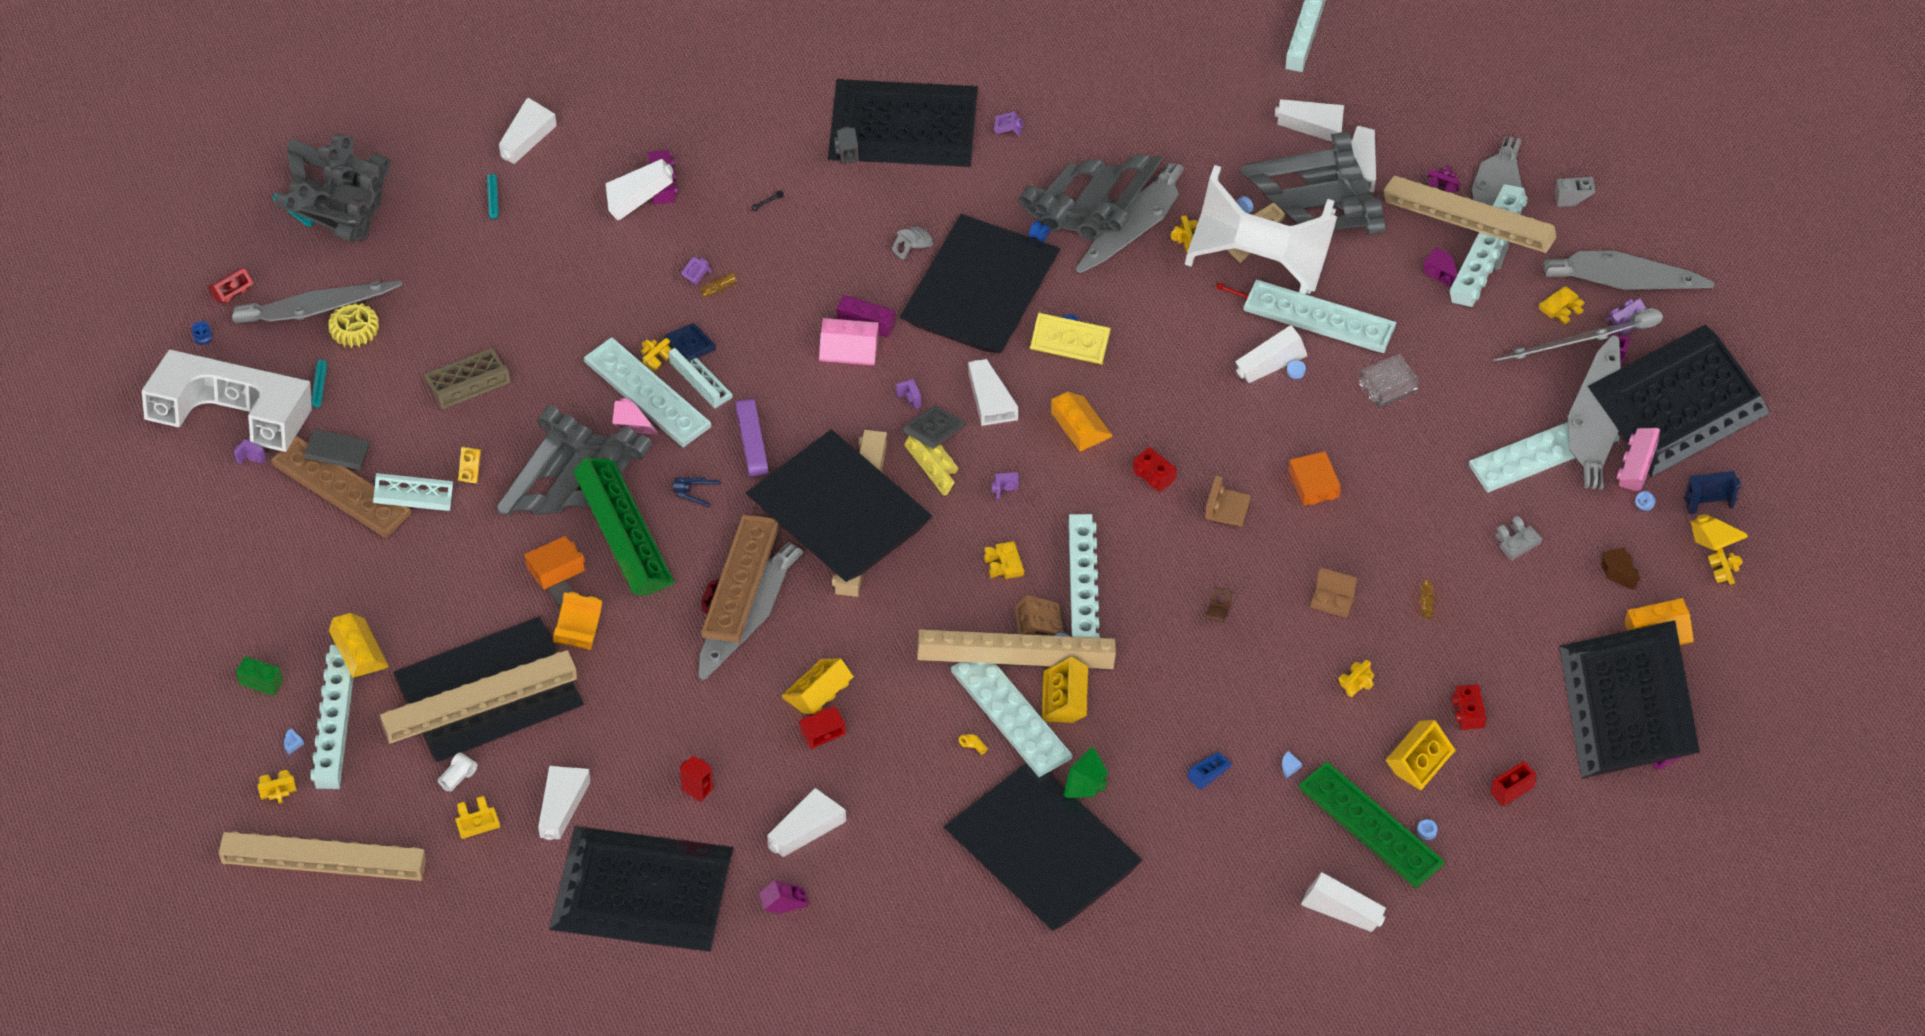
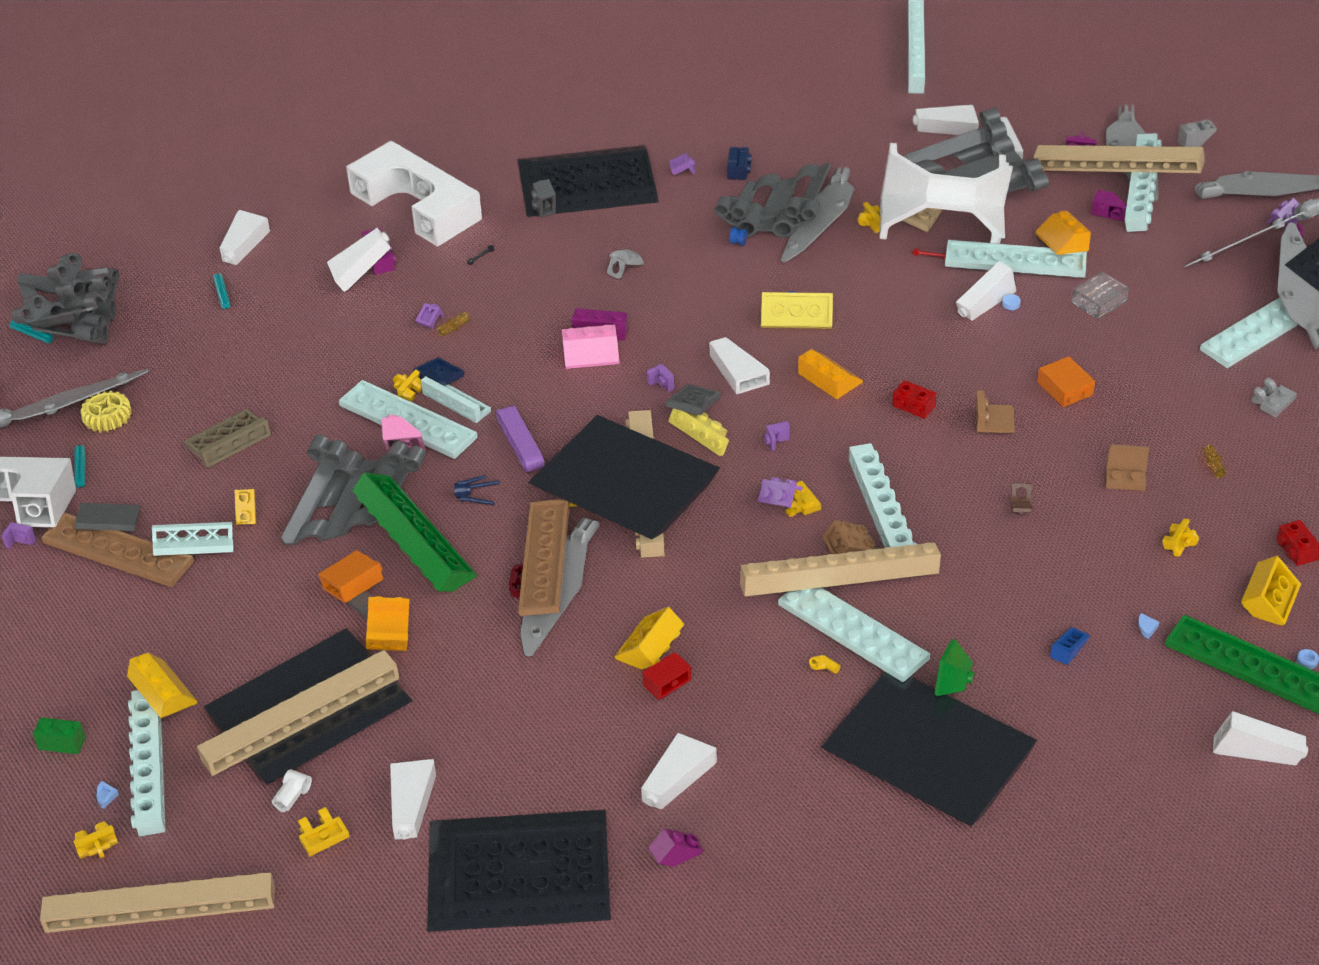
camera: 10 degrees left, 10 degrees down
(696, 778) = (550, 746): red brick -> none
(701, 76) = (445, 202): none -> white arch
(979, 284) = (697, 286): black piece -> none
(984, 551) = (778, 492): none -> medium lavender bracket
(1065, 692) = (900, 600): yellow slope -> none
(1068, 134) = (739, 163): none -> dark blue brick
(1378, 298) = (1064, 234): none -> light orange slope
(1558, 303) = (1224, 216): yellow plate -> none

